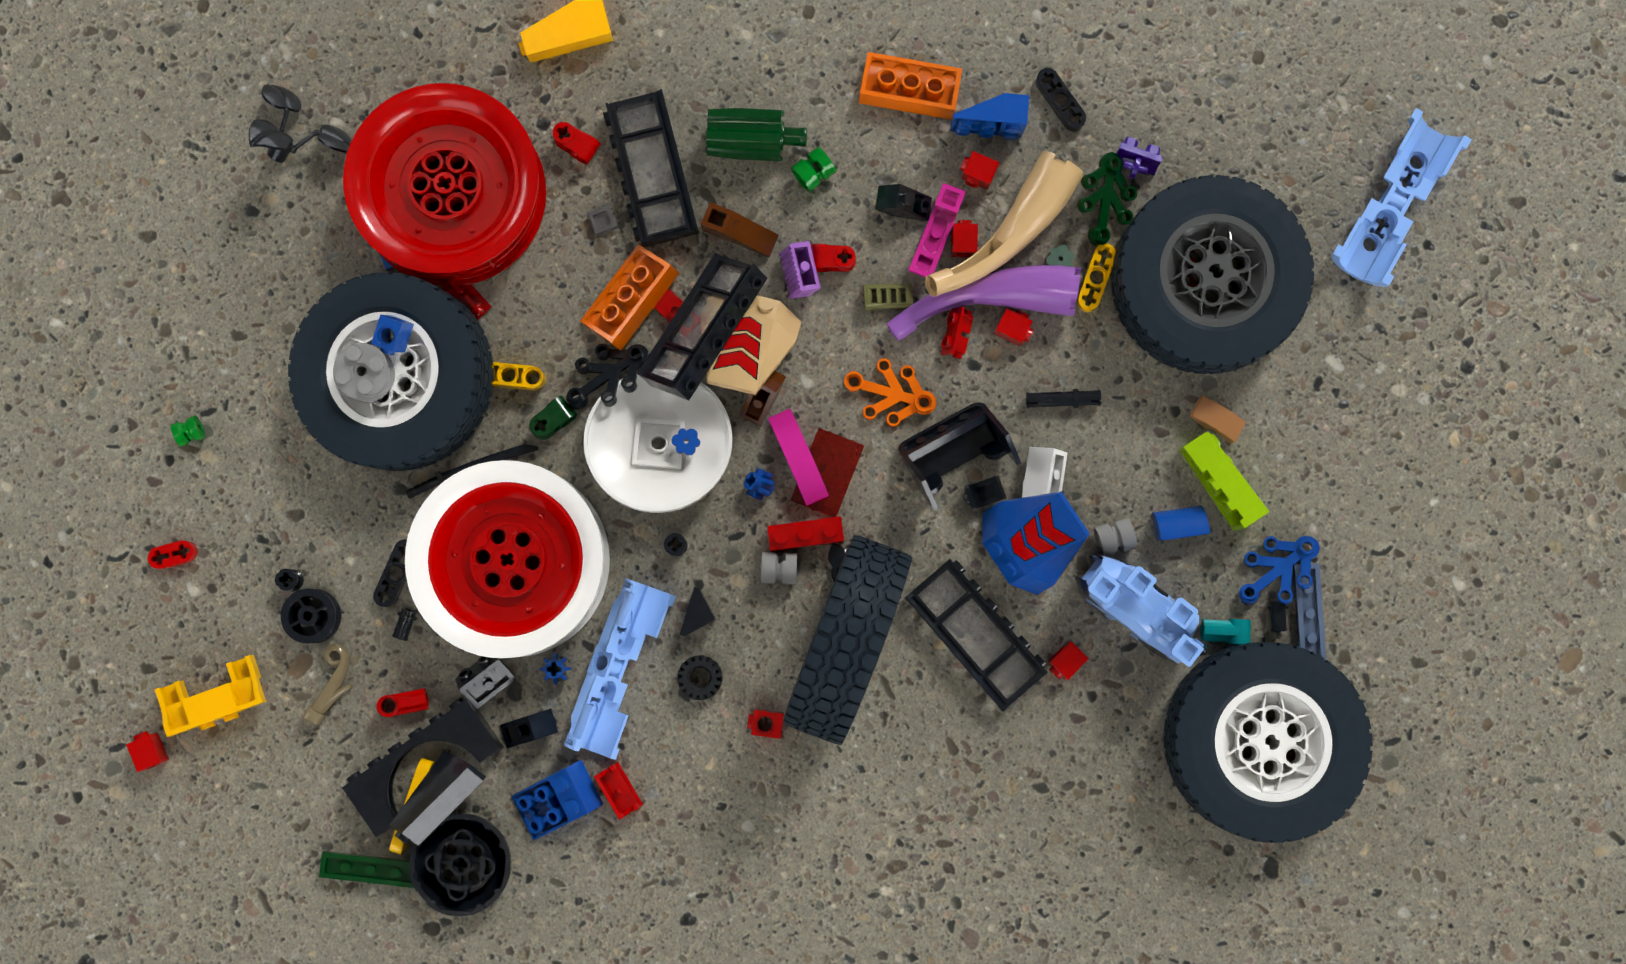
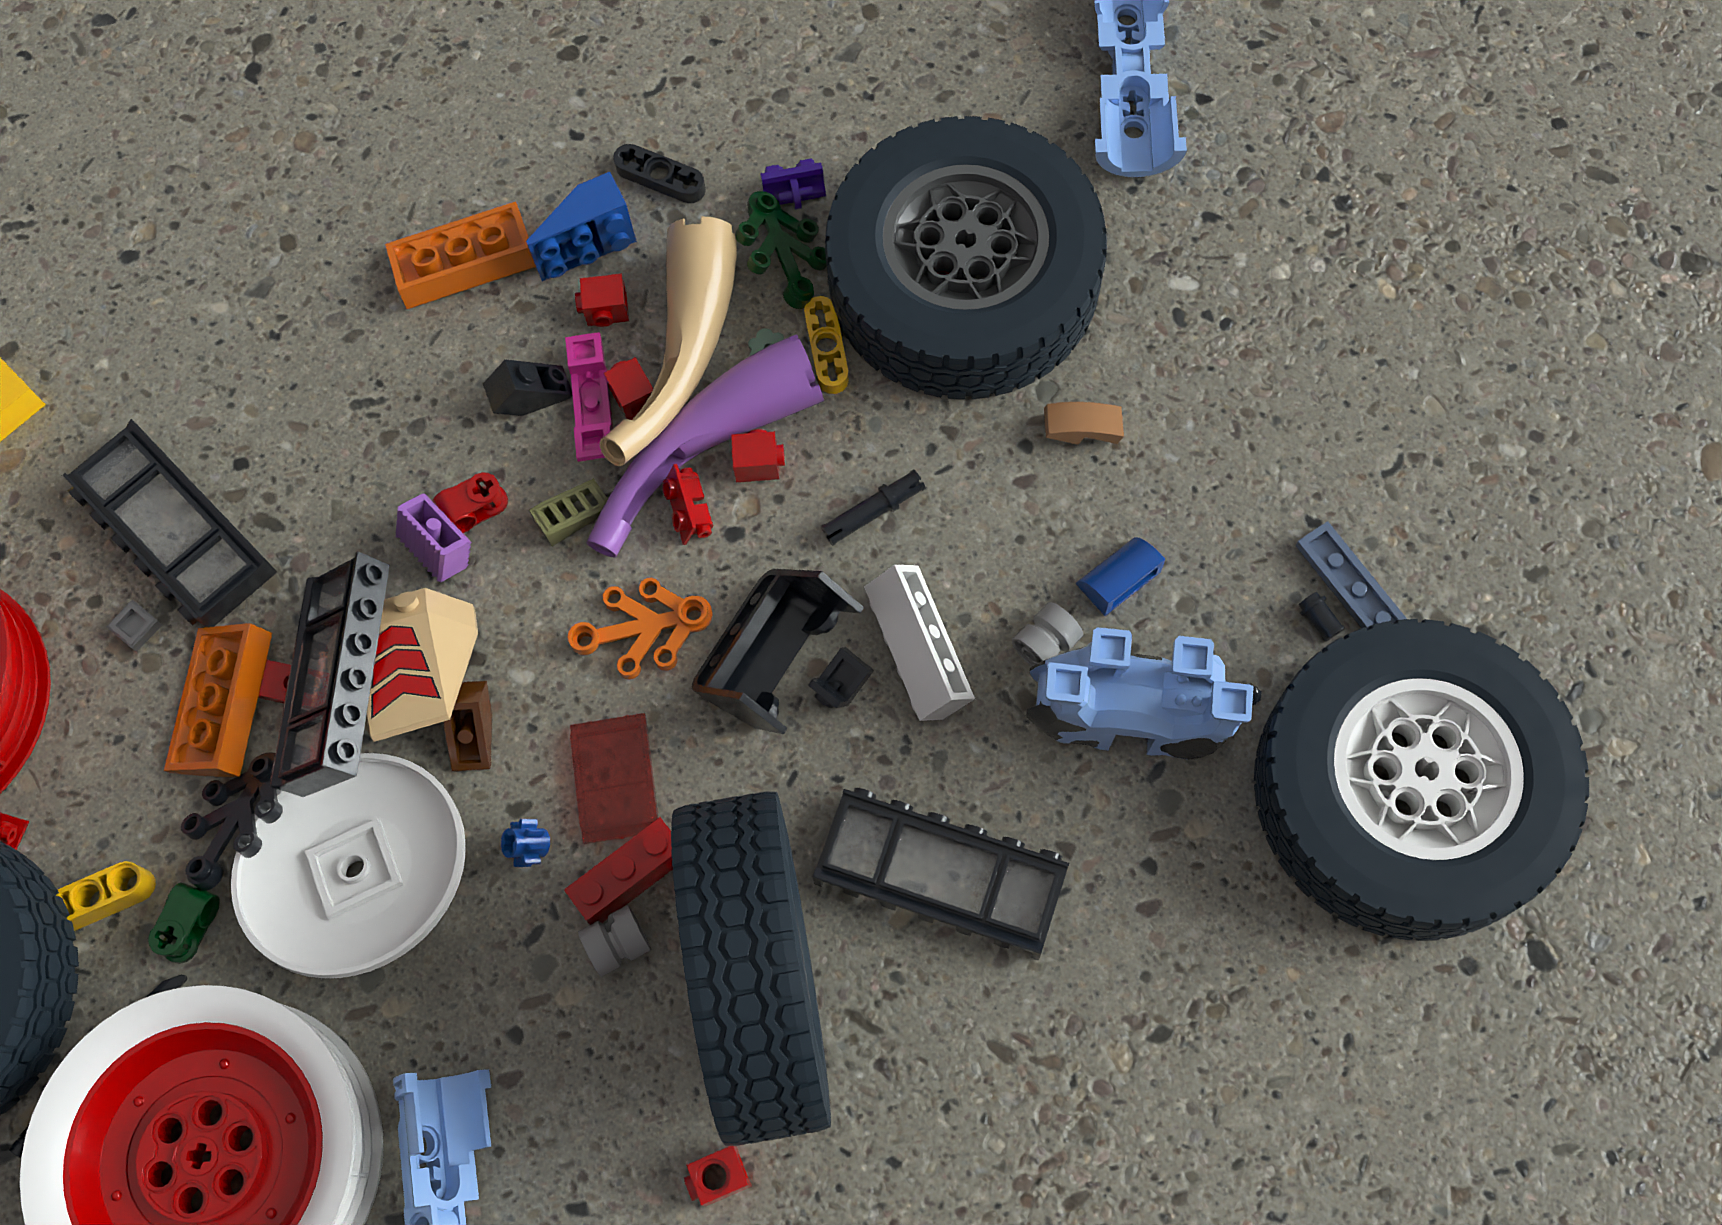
camera: 25 degrees left, 15 degrees down
(579, 144) = (46, 546): red piece -> none
(670, 539) = (438, 991): black bush -> none
(682, 436) = (378, 841): blue plant -> none
(698, 613) = (532, 1077): black slope -> none
(710, 666) = (561, 1156): black tyre -> none
(738, 229) = (321, 534): reddish brown slope -> none
(750, 134) = (278, 410): dark green piece -> none
(798, 457) = (563, 777): dark pink slope -> none
(807, 175) = (385, 413): green wheel -> none
(1033, 539) = (941, 695): blue wedge -> none
(1067, 661) = (1086, 835): red brick -> none
(1223, 481) = (1141, 489): lime wedge -> none
(1231, 631) = (1272, 670): teal piece -> none
(1282, 567) = (1283, 553): blue plant -> none

